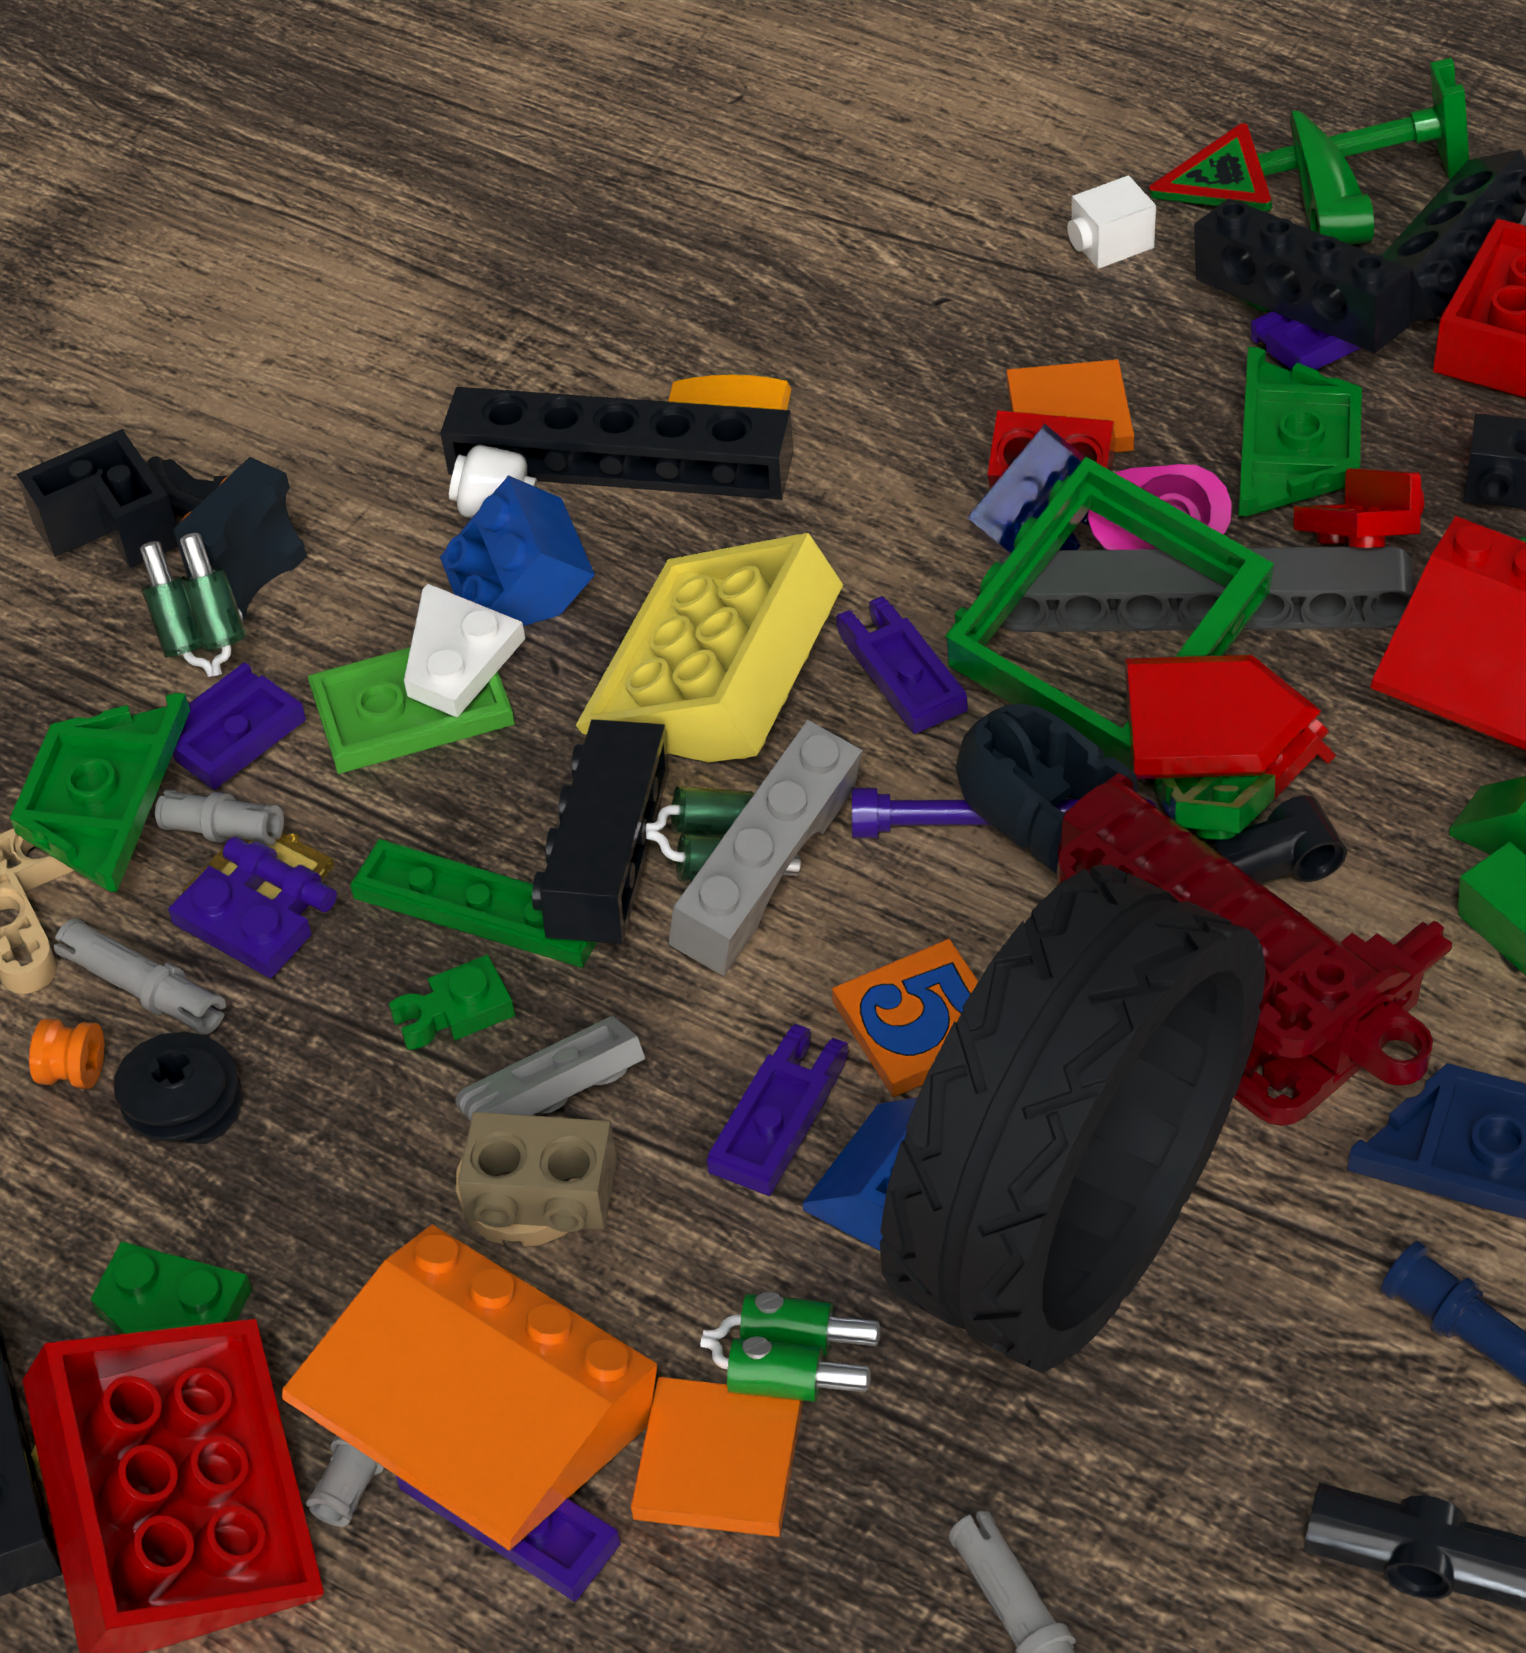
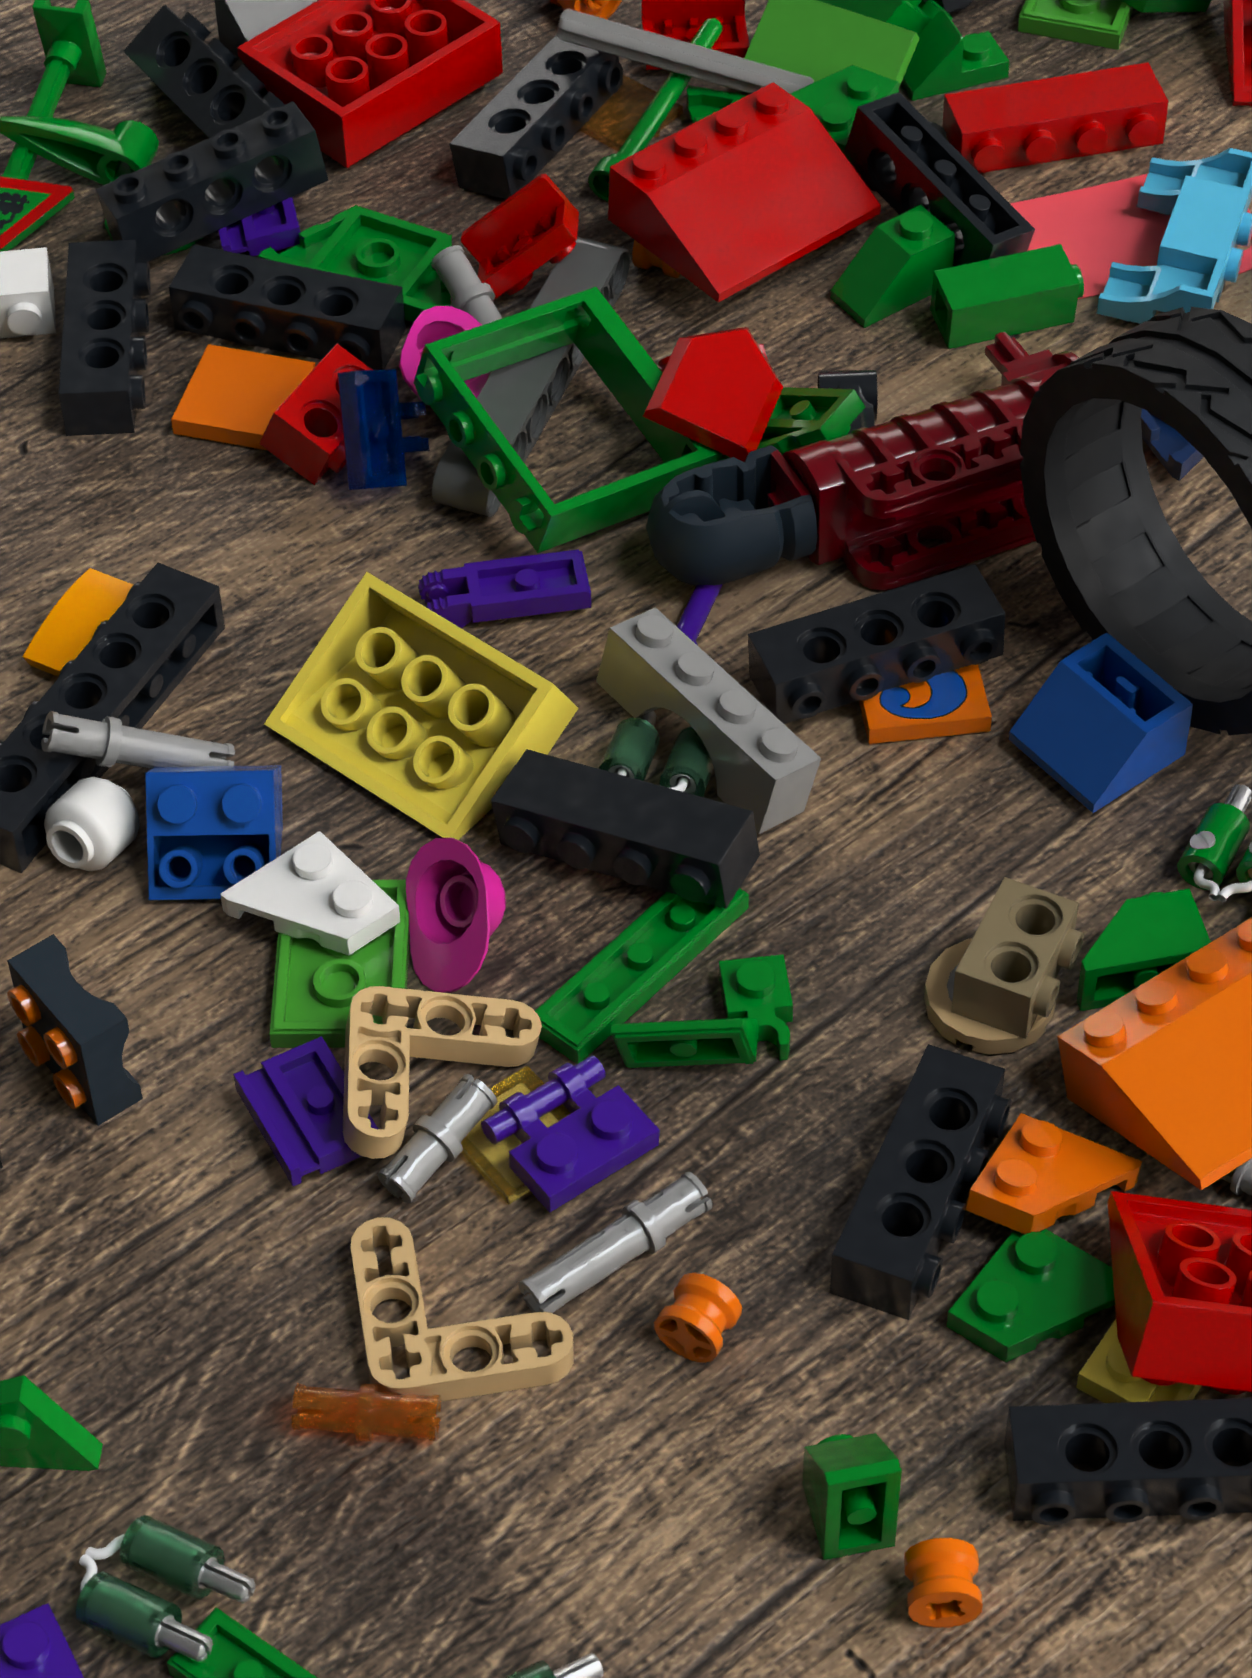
camera: 75 degrees left, 0 degrees up
(98, 786) = (367, 1219): green wing -> none
(178, 1088) = (782, 1229): black piece -> none
(193, 609) = (132, 1115): clear green piece -> none
(235, 1155) = (893, 1270): none -> black brick
(293, 1271) = (1045, 1176): none -> orange wing
(298, 749) = (395, 1044): none -> tan beam
(379, 951) = (687, 1042): none -> green slope
(479, 753) = (452, 913): none -> dark pink piece
(555, 1073) = (888, 940): light grey hinge -> none
(558, 454) = (113, 743): none -> light grey pin
(613, 1286) = (1139, 944): none -> green slope
(776, 1112) = (987, 797): dark purple hinge -> none
(900, 930) = (876, 644): none -> black brick
(1084, 288) = (102, 338): none -> black brick
(1190, 385) = (286, 306): none -> black brick
(1273, 505) = (465, 285): none -> light grey pin

